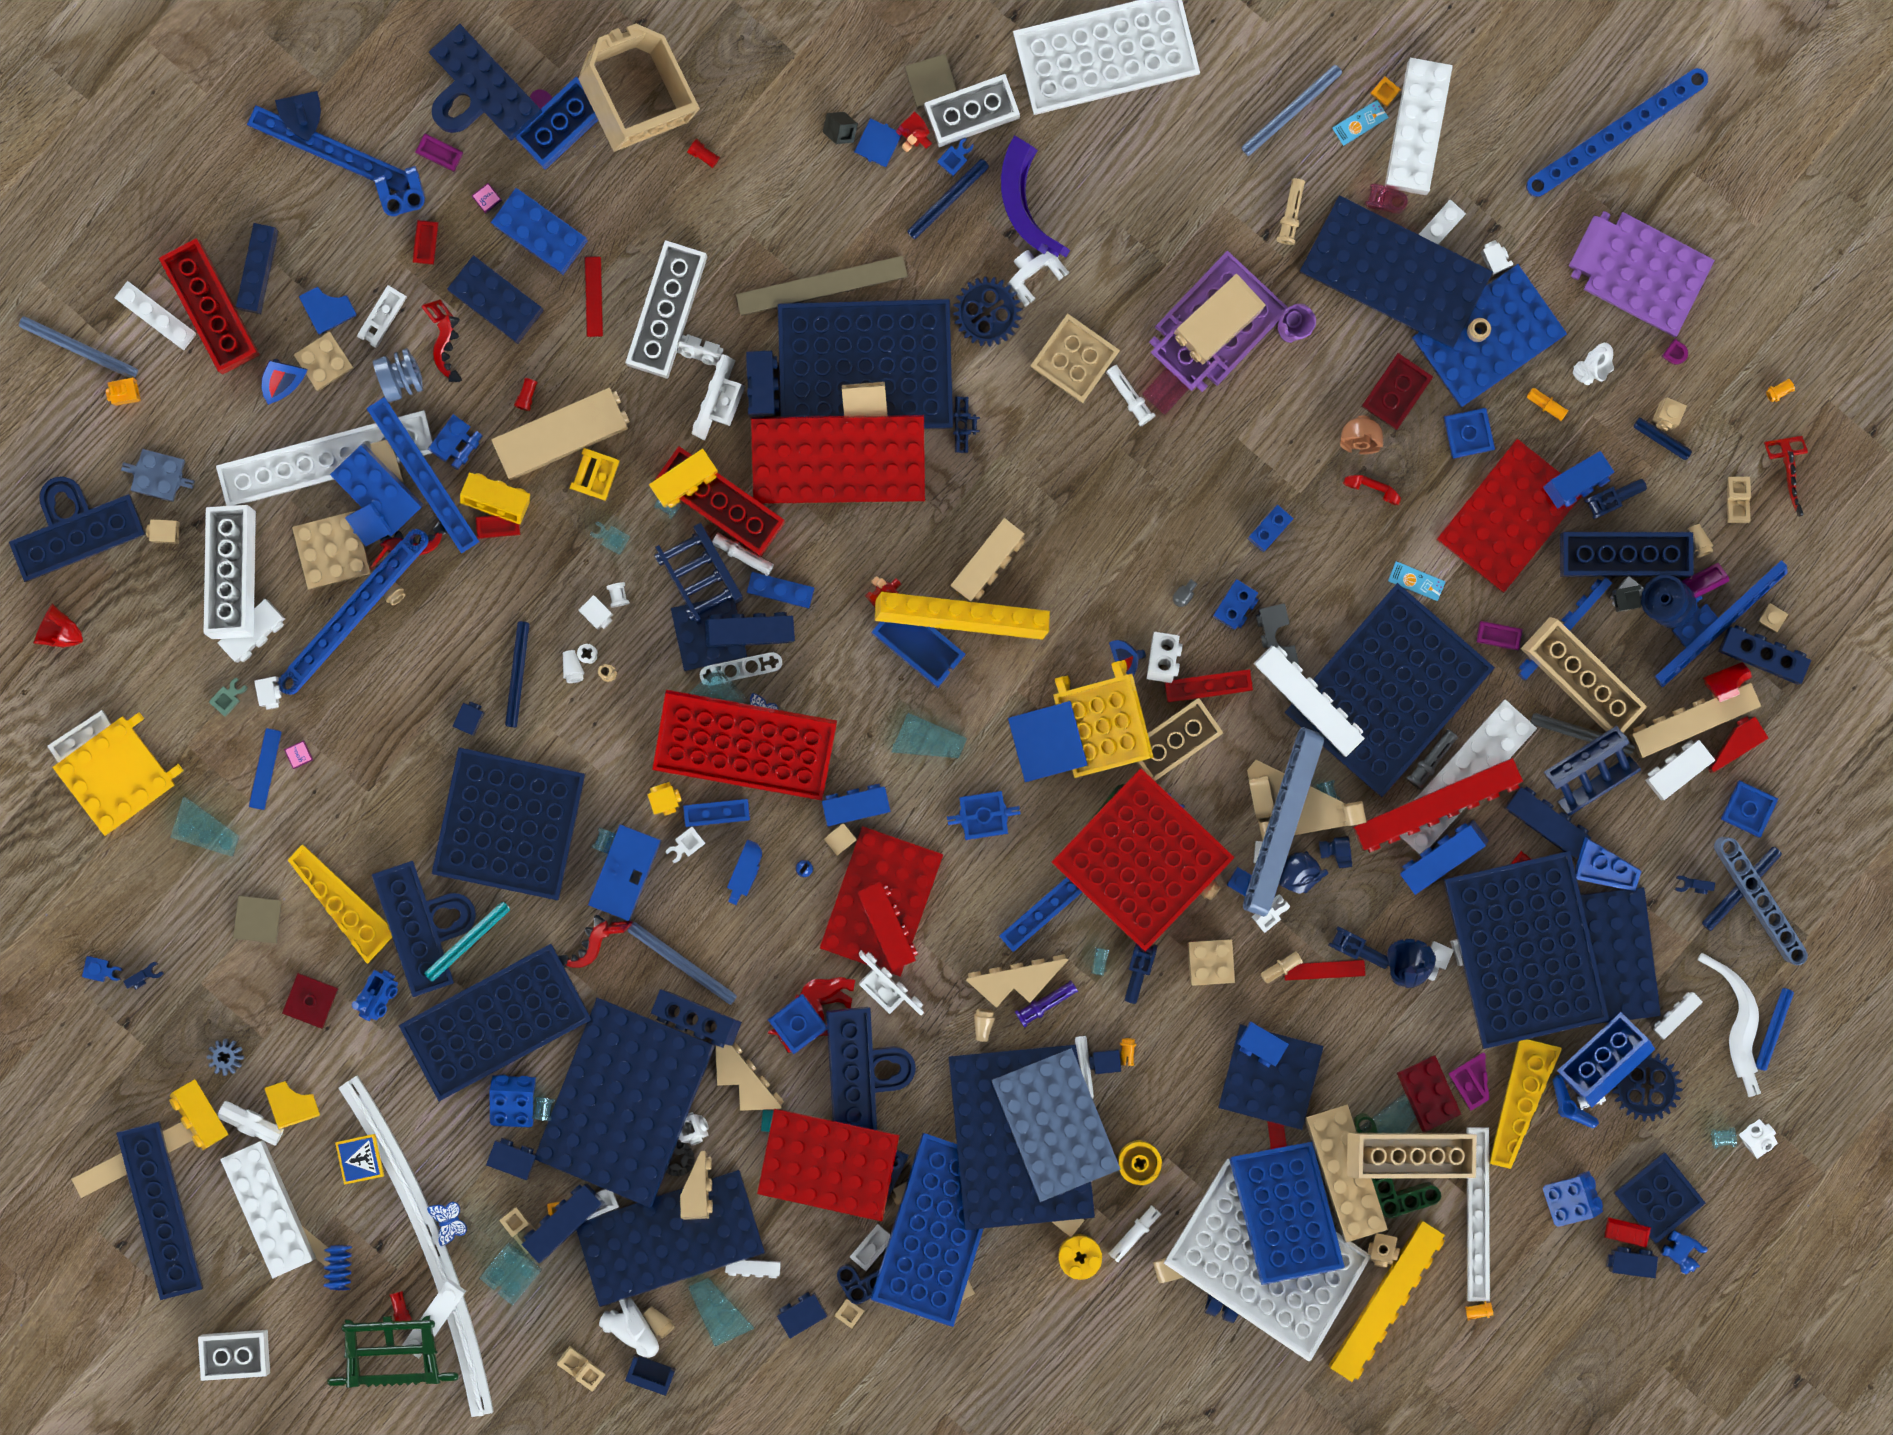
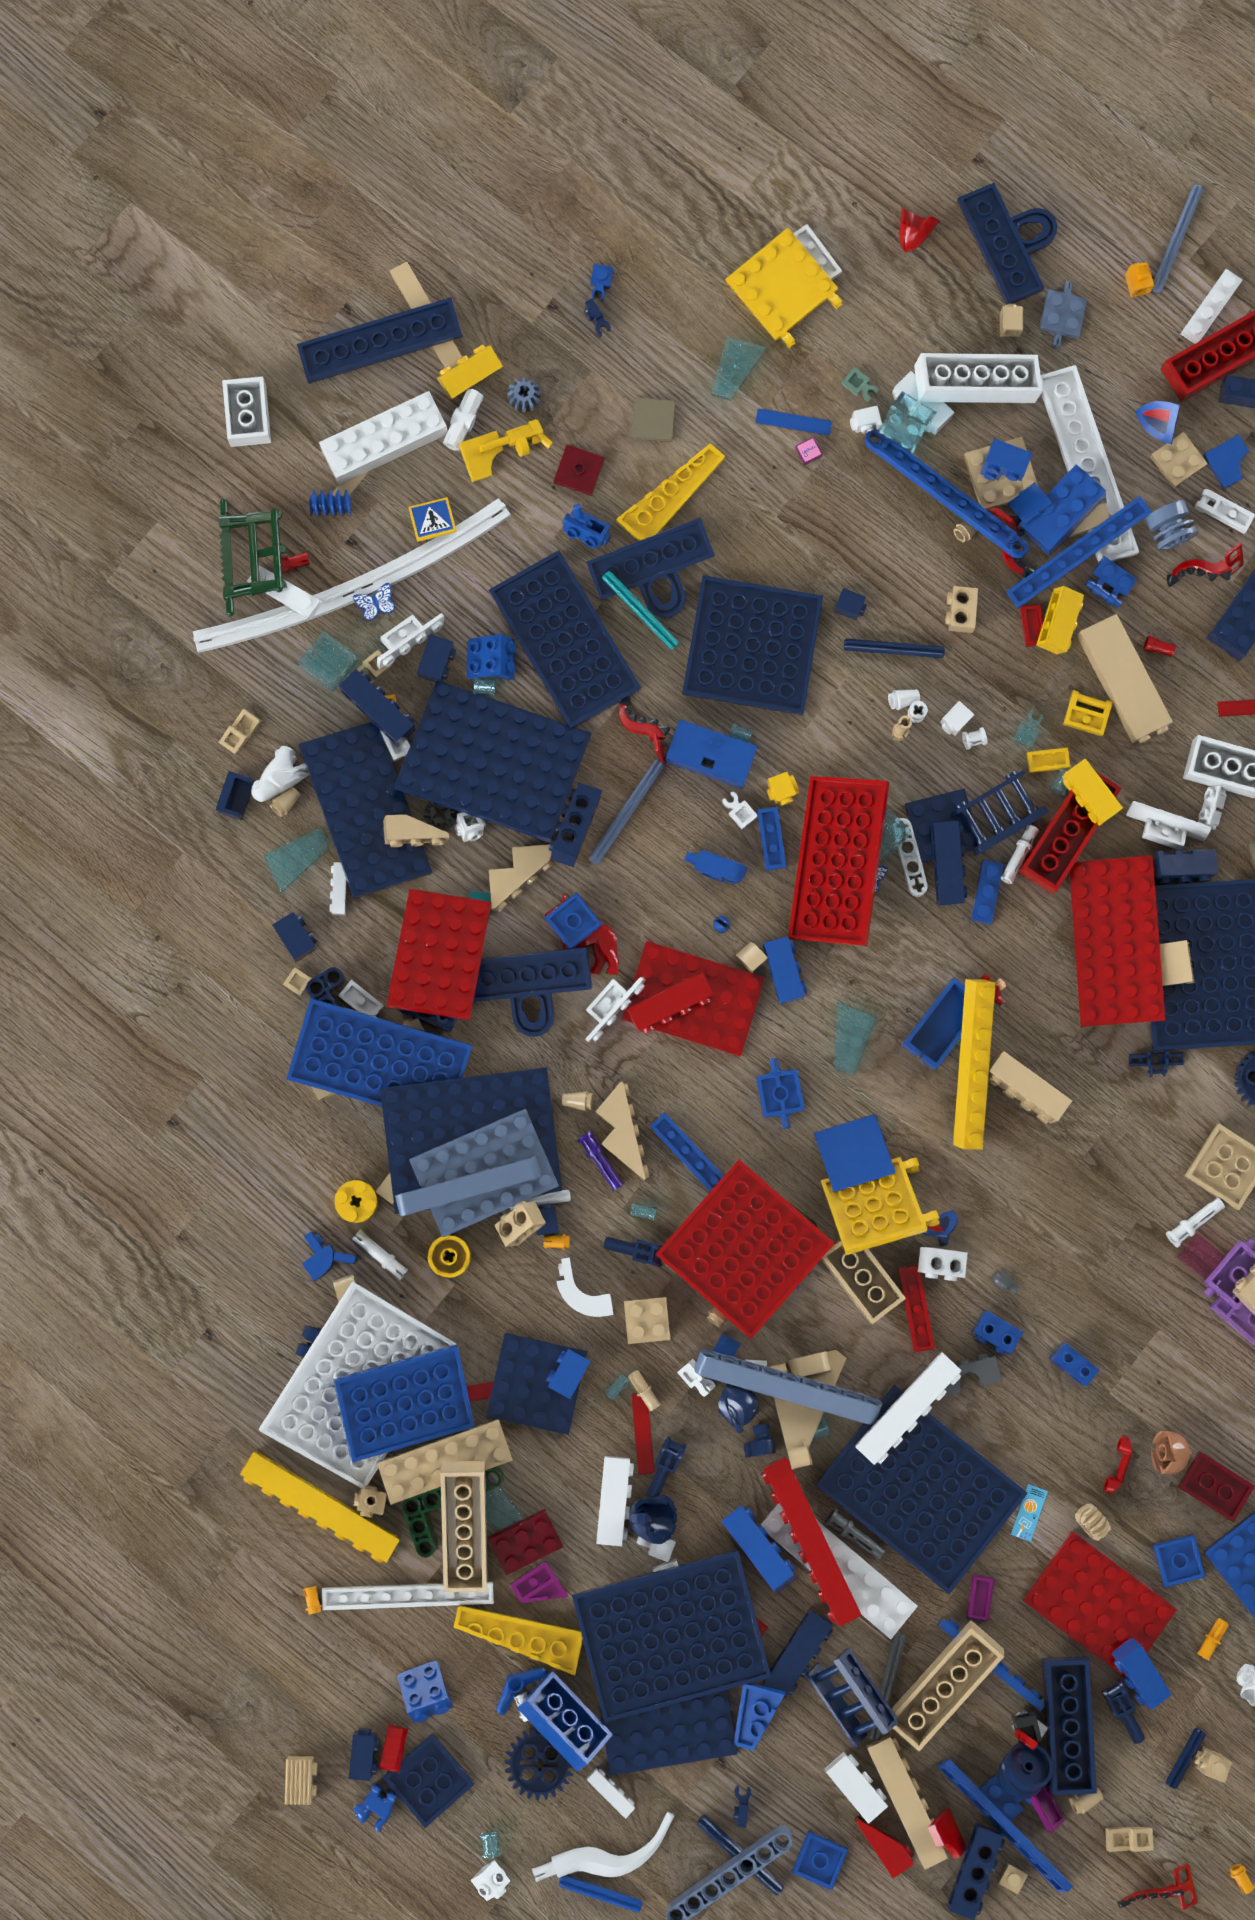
camera: 85 degrees right, 5 degrees down
(272, 1064) = (519, 438): none -> yellow piece
(282, 654) = (906, 429): none -> clear light blue piece
(324, 548) = (1005, 460): none -> blue brick
(479, 595) = (966, 610): none -> tan brick
(485, 1191) = (404, 636): none -> white bracket
(643, 518) = (1048, 760): none -> yellow plate
(1070, 1141) = (468, 1186): none -> sand blue beam
(1109, 1089) = (519, 1223): none -> tan brick
(1137, 1270) = (346, 1258): none -> blue tile
(1137, 1292) = (322, 1261): none -> blue brick
(1191, 1027) = (588, 1305): none -> white arch
(1277, 995) = (617, 1387): none -> clear light blue pin
(1391, 1002) = (613, 1501): none -> white brick
(1428, 519) = (1092, 1522): none -> tan gear
(1638, 599) = (1027, 1739): none -> red tile
(1655, 1327) = (299, 1780): none -> tan brick

